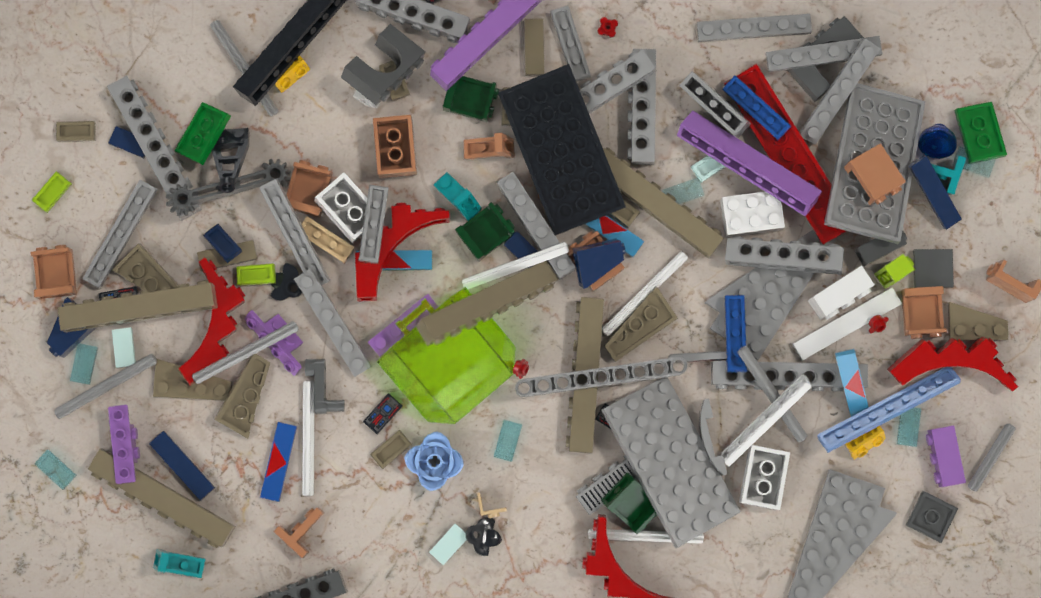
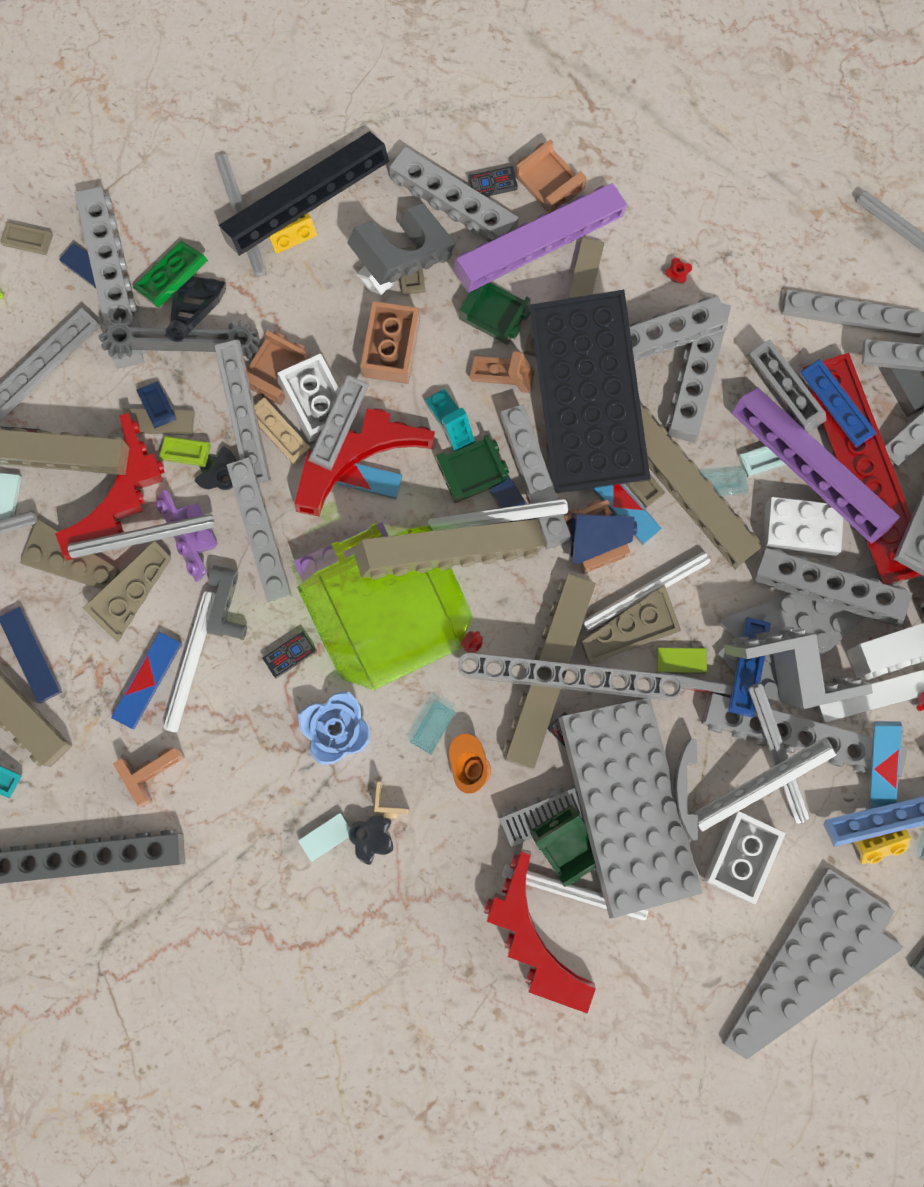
camera: 15 degrees right, 5 degrees down
(144, 271) = (53, 410): dark tan wing -> none
(391, 449) = (287, 701): dark tan tile -> none
(542, 461) = (469, 763): none -> orange piece
(570, 42) = (630, 275): light grey tile -> none
(684, 340) = (682, 660): none -> lime tile
(771, 326) = (798, 668): none -> light grey bracket

